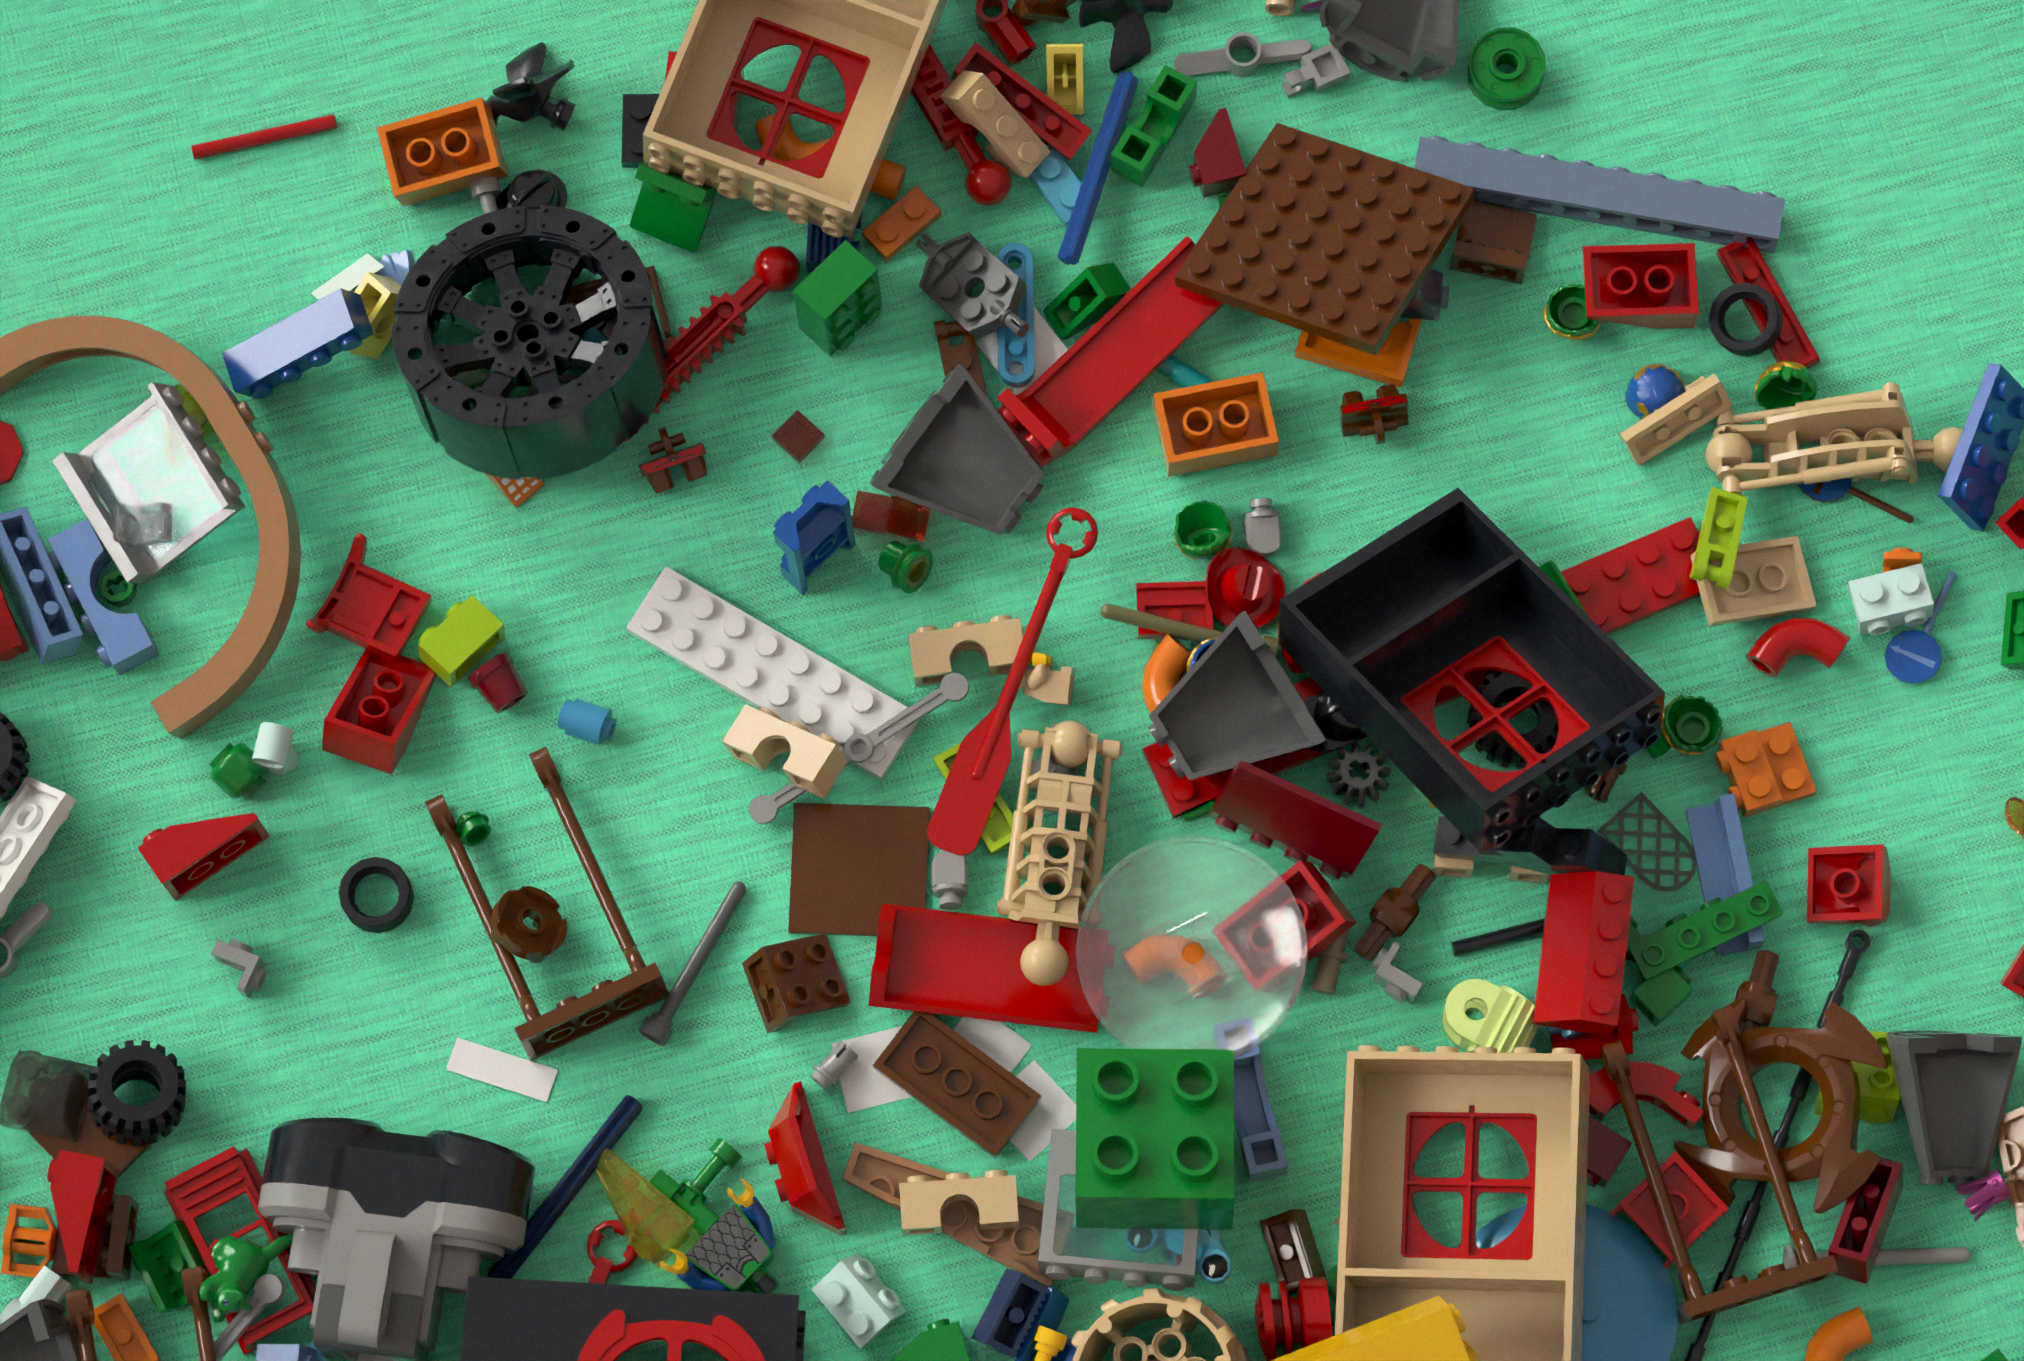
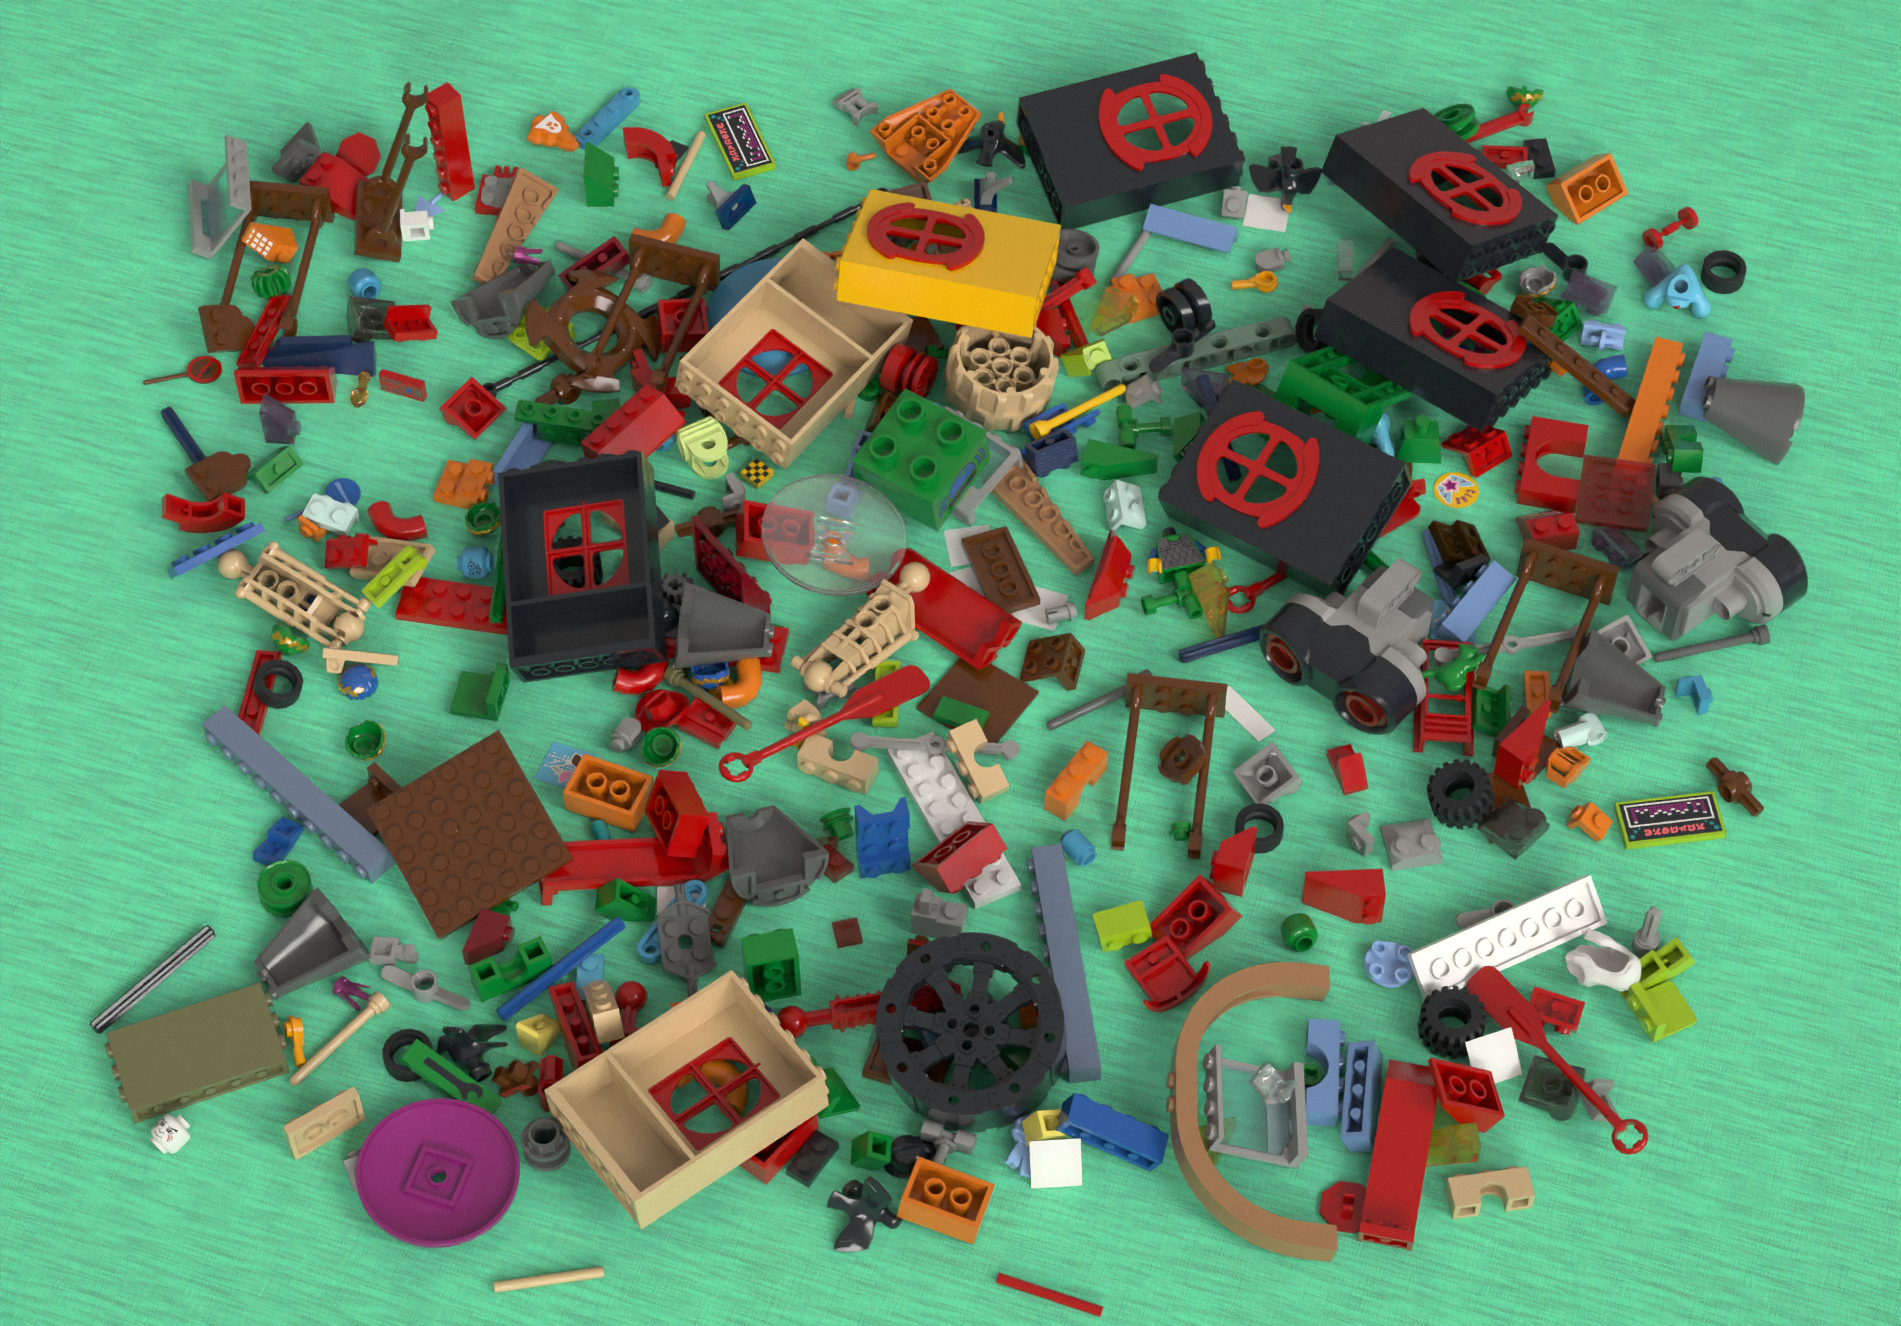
camera: 150 degrees left, 20 degrees down
(105, 801) = (1388, 964): none -> light blue dish
(171, 999) = (1411, 844): none -> light grey slope
(274, 748) = (1270, 921): light aqua piece -> none
(316, 1062) = (1348, 769): none -> red slope
(370, 805) = (1233, 862): none -> red slope
(405, 975) = (1268, 775): none -> light grey slope
(499, 683) = (1114, 891): dark red piece -> none
(506, 555) = (1064, 960): none -> sand blue brick
(570, 163) = (871, 1150): none -> green brick
(647, 813) = (1084, 768): none -> orange arch
(692, 510) = (937, 917): none -> light grey hinge
(717, 598) = (961, 856): none -> red slope
(860, 824) = (959, 713): none -> green tile
(925, 1200) = (1056, 516): tan arch -> none
(949, 879) = (933, 662): light grey arm -> none
(1098, 428) = (677, 813): none -> red brick
(1311, 449) = (560, 764): none -> medium azure sticker
(1374, 415) = (526, 759): reddish brown hips -> none
(1394, 1033) = (757, 473): none -> yellow tile
(1489, 468) = (481, 694): none -> green bracket
(1569, 125) = (279, 843): none -> blue slope
(1642, 285) = (315, 725): red slope -> none
(1650, 648) = (475, 562): none -> dark azure head
(1819, 558) = (348, 551): none -> red bracket
(1974, 867) = (402, 385): none -> red tile

